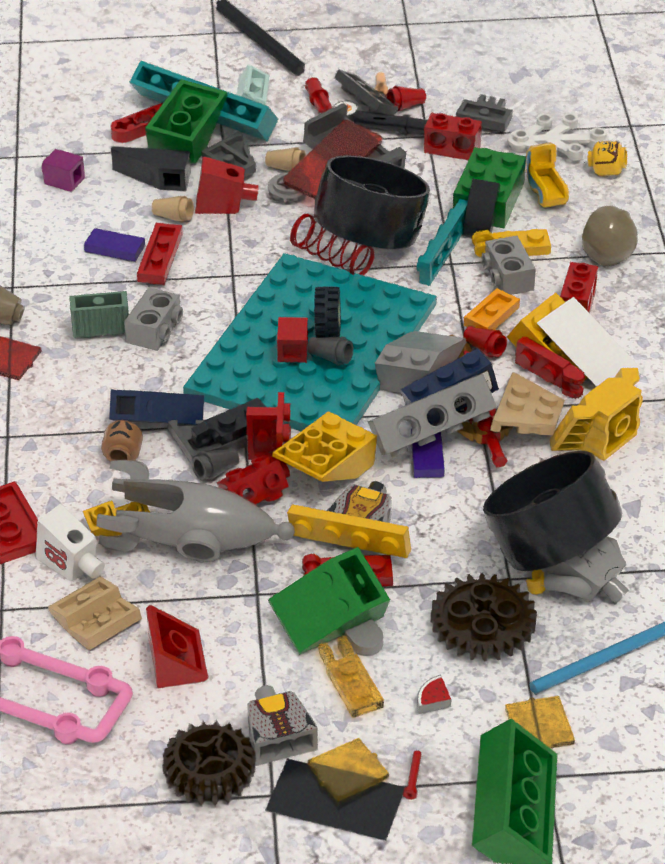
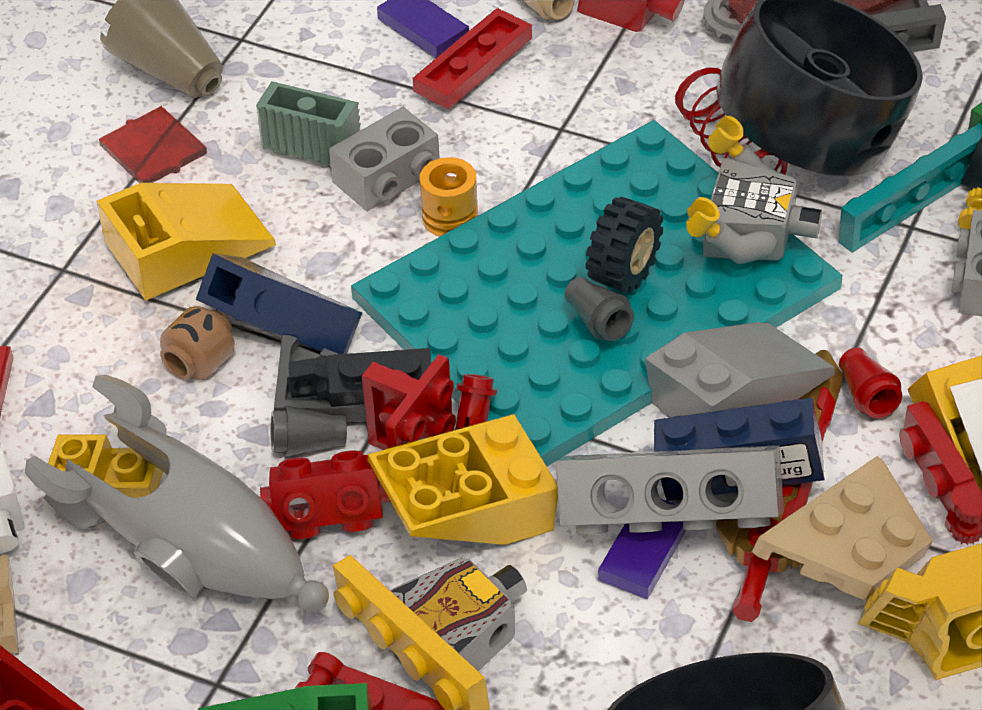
camera: 30 degrees right, 5 degrees up
(66, 394) = (172, 229): none -> yellow slope
(206, 327) = (445, 198): none -> light orange piece
(292, 339) = (546, 269): red brick -> none
(298, 416) = (474, 400): none -> red pin
(373, 275) = (750, 205): none -> torso
(492, 310) = (914, 335): light orange plate -> none

